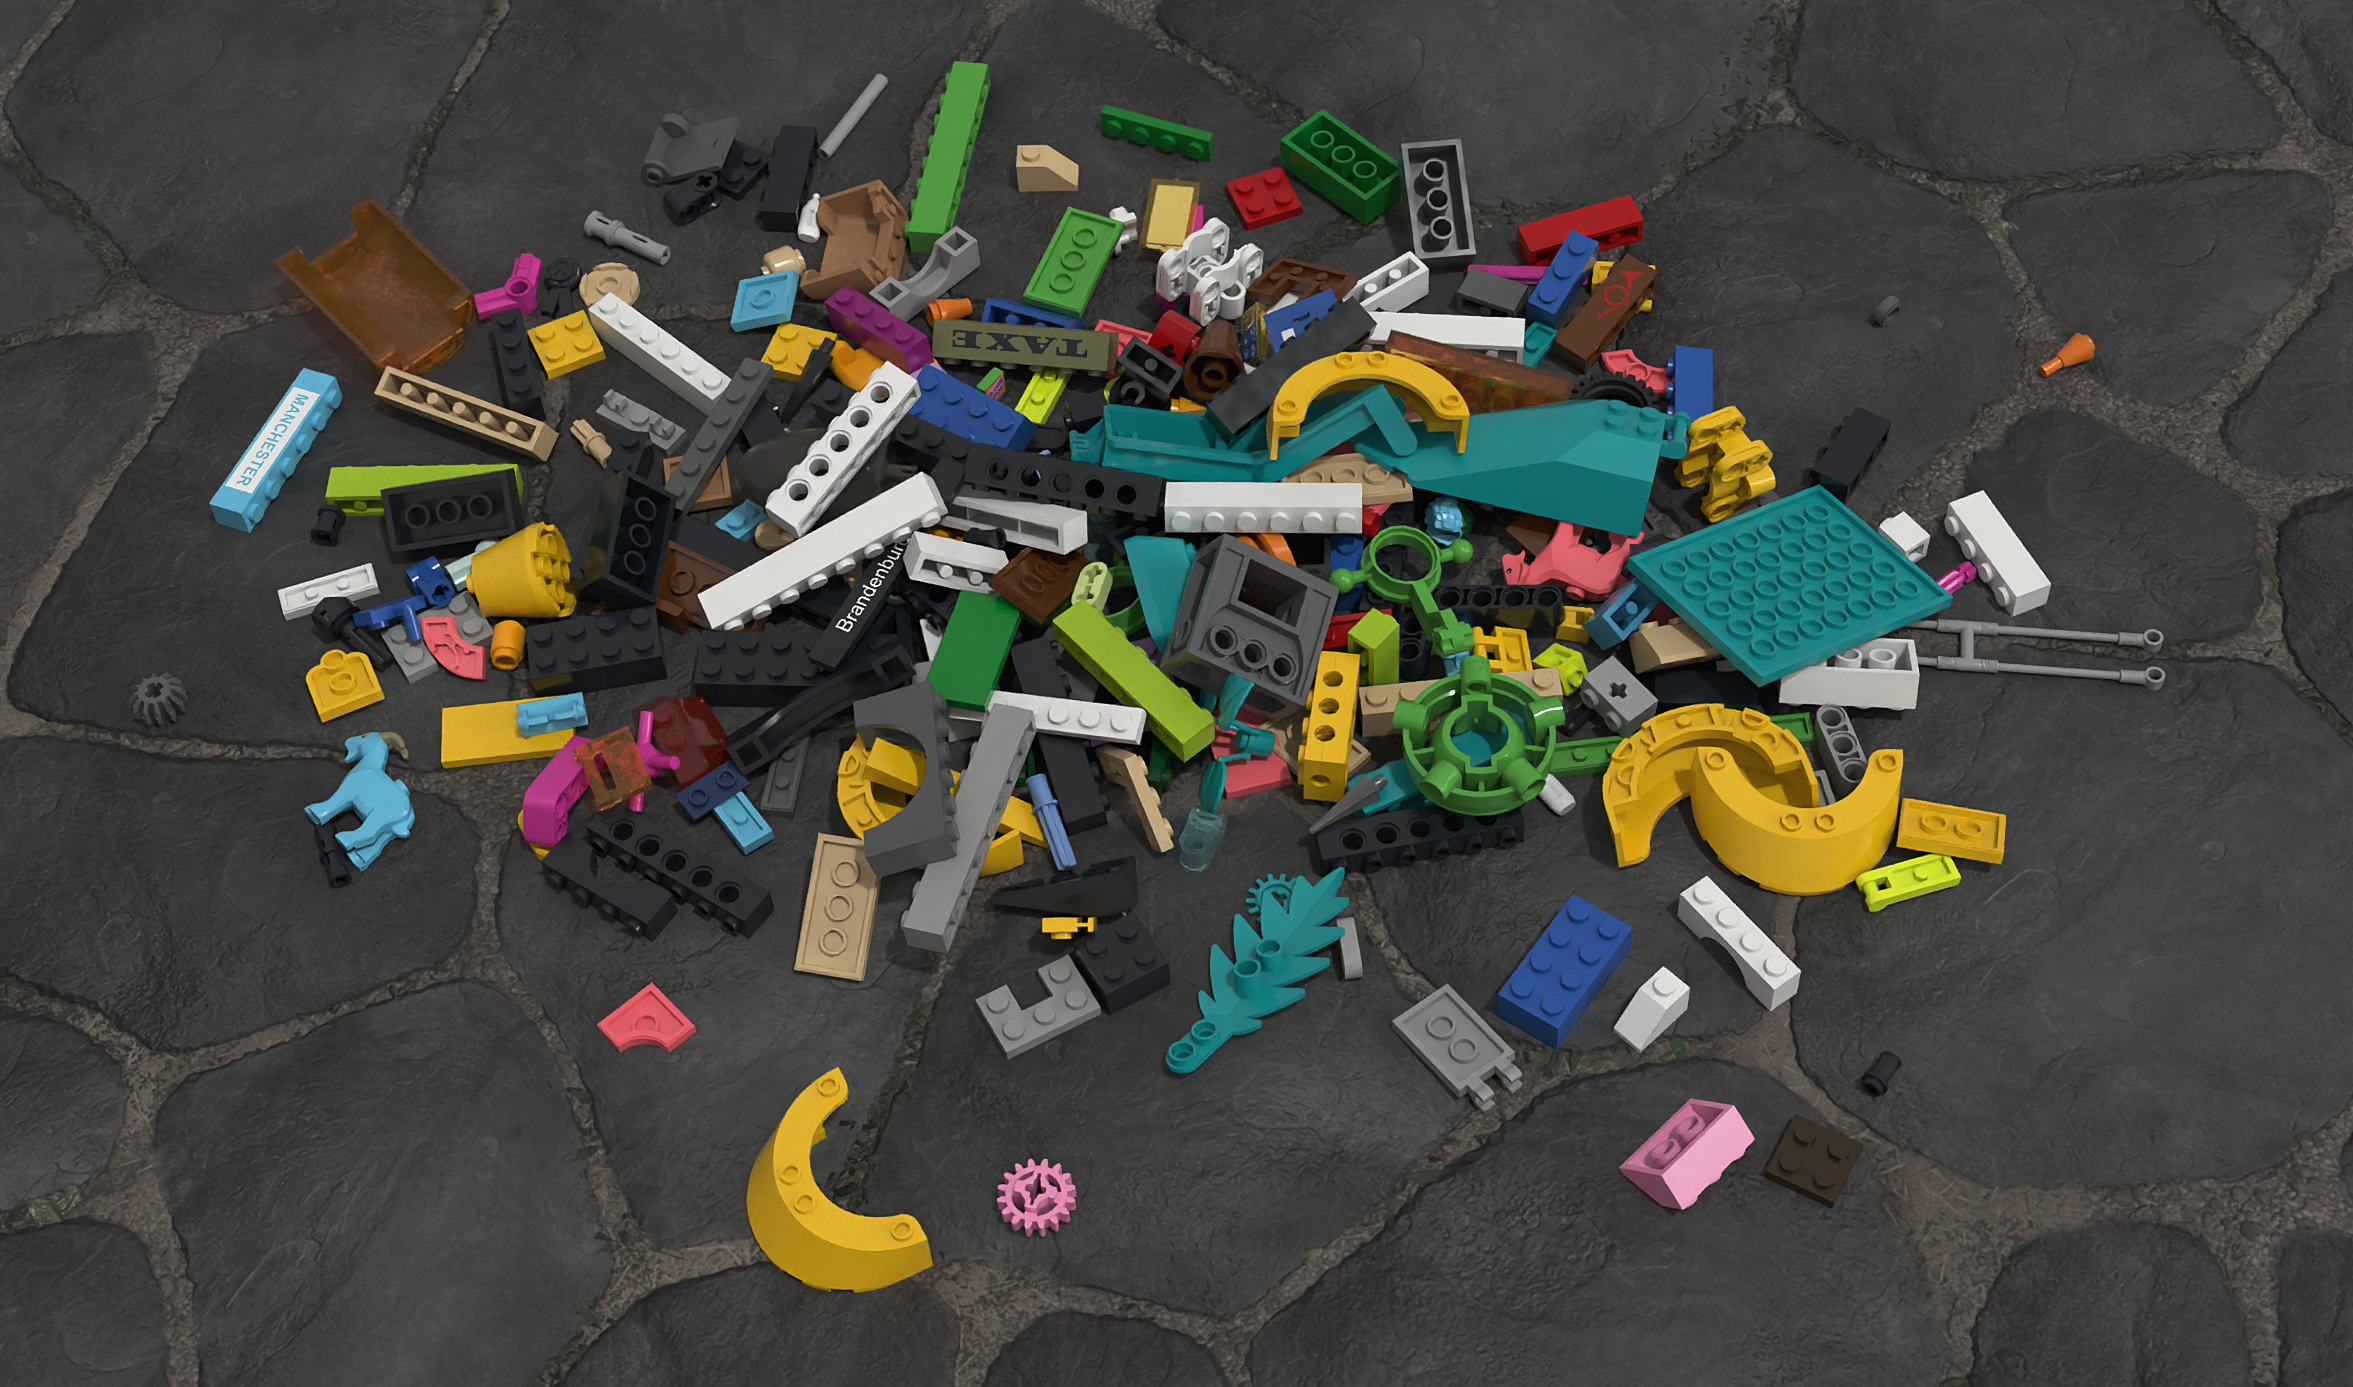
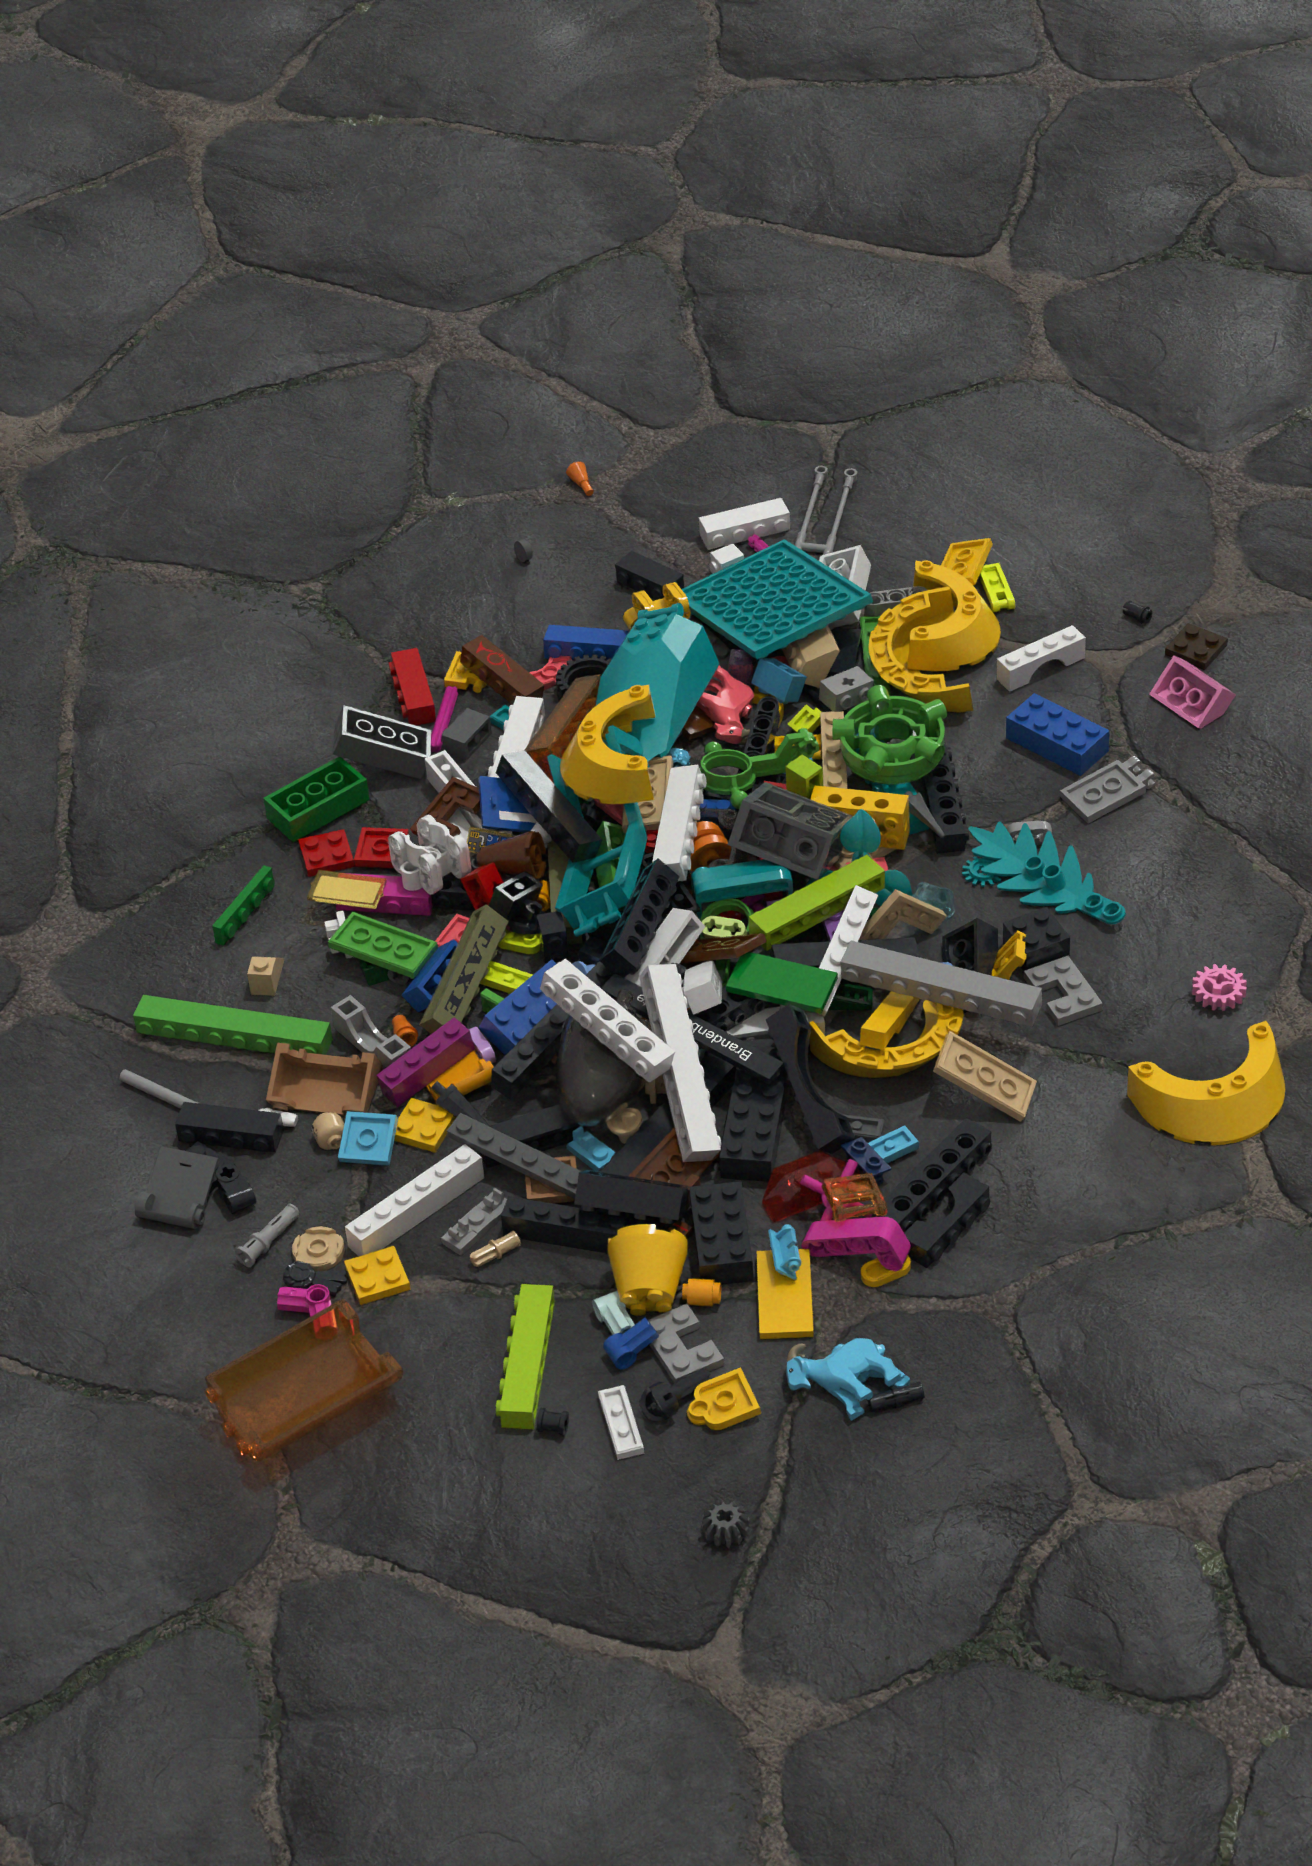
camera: 85 degrees left, 10 degrees down
(276, 450) = (460, 1463): medium azure brick -> none
(401, 608) = (661, 1361): blue plate -> none
(452, 510) = (569, 1317): black brick -> none
(452, 650) = (700, 1328): coral tile -> none
(466, 413) = (454, 1324): tan brick -> none
(517, 364) = (404, 1297): black brick -> none
(647, 1020) = (1062, 1200): coral tile -> none
(925, 826) = (852, 1001): dark grey arch -> none
(1274, 238) = (374, 847): none -> red plate
(1562, 279) = (464, 688): blue brick -> none
(1653, 1009) = (1087, 698): white slope -> none

